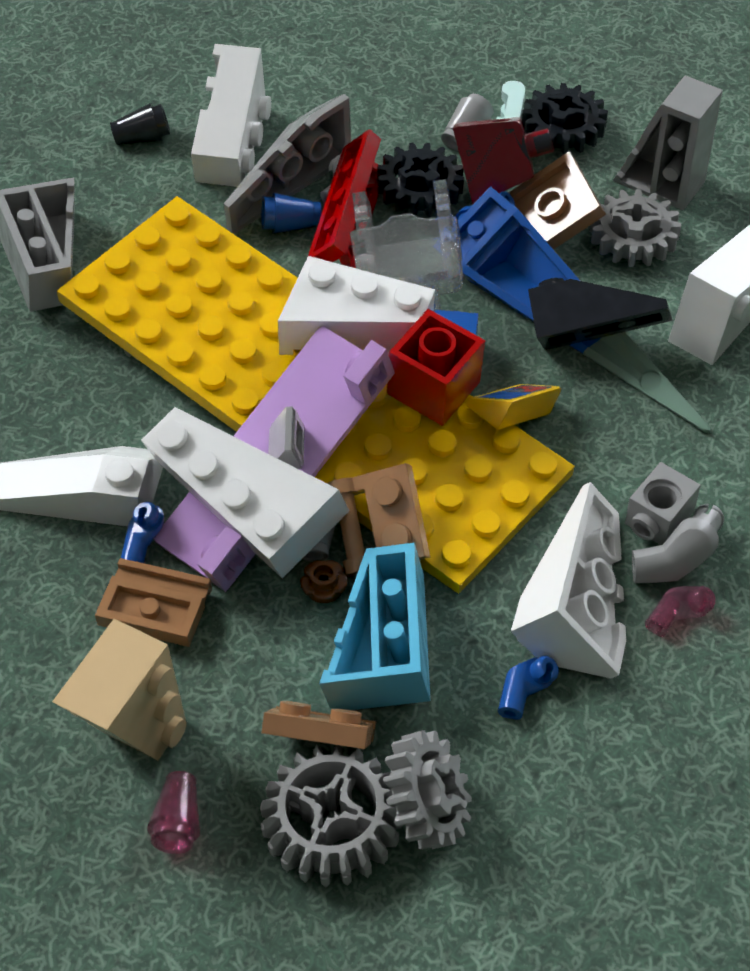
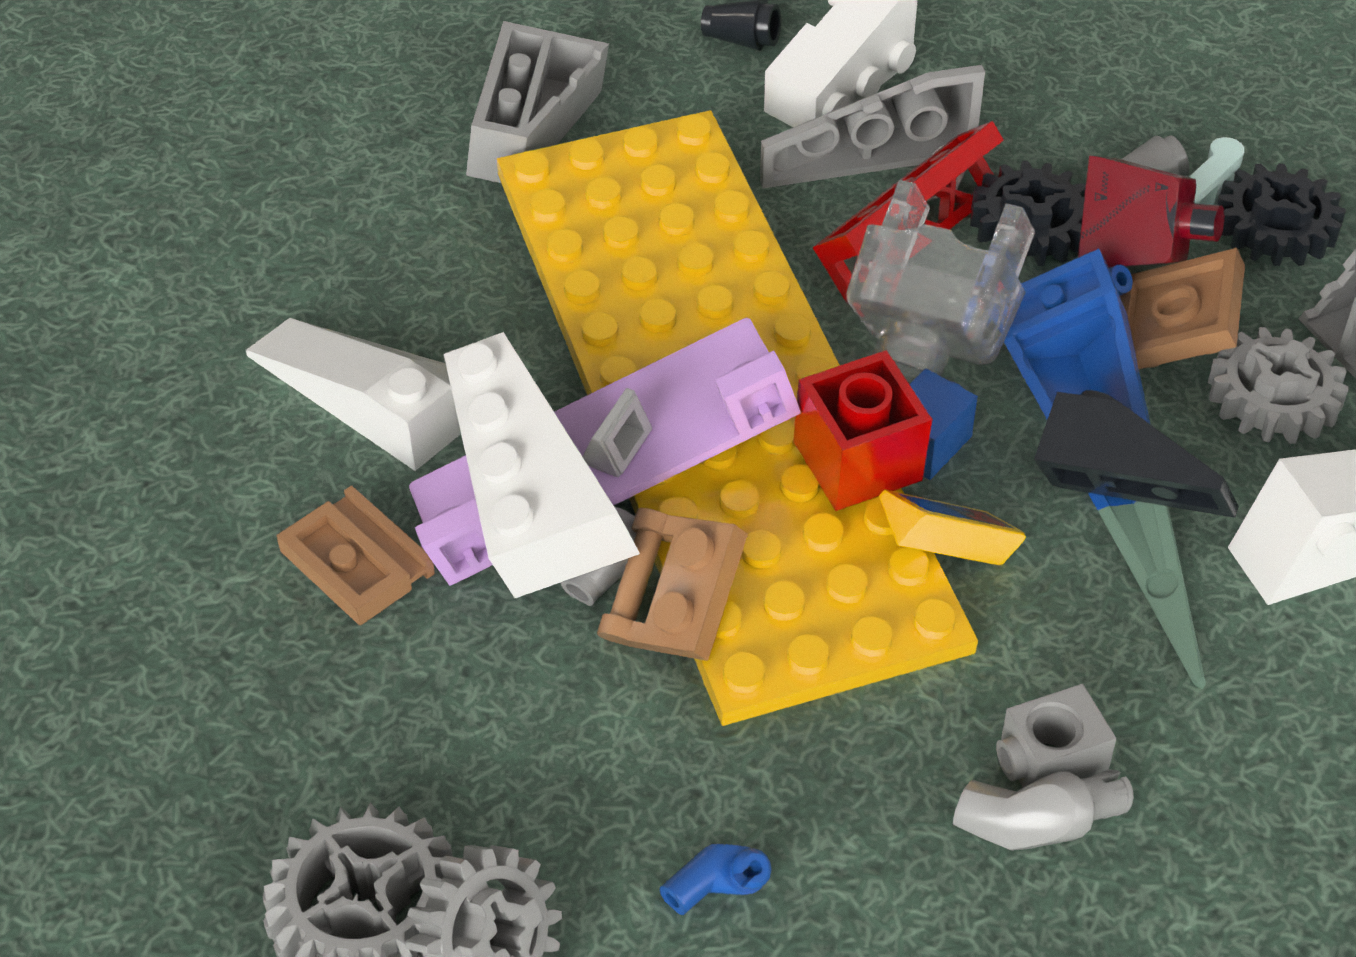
camera: 30 degrees right, 5 degrees down
(128, 691) = (208, 629): tan wedge -> none
(142, 530) = (408, 461): blue arm -> none
(175, 815) = (196, 805): clear pink cone -> none
(288, 213) = (838, 185): blue cone -> none
(327, 590) = (568, 640): reddish brown plate -> none
(337, 728) = (422, 789): medium nougat plate -> none
(351, 304) = (803, 310): white wedge -> none
(384, 637) = (581, 722): medium azure wedge -> none
(573, 592) = (856, 799): white wedge -> none
(678, 604) = (990, 880): clear pink arm -> none

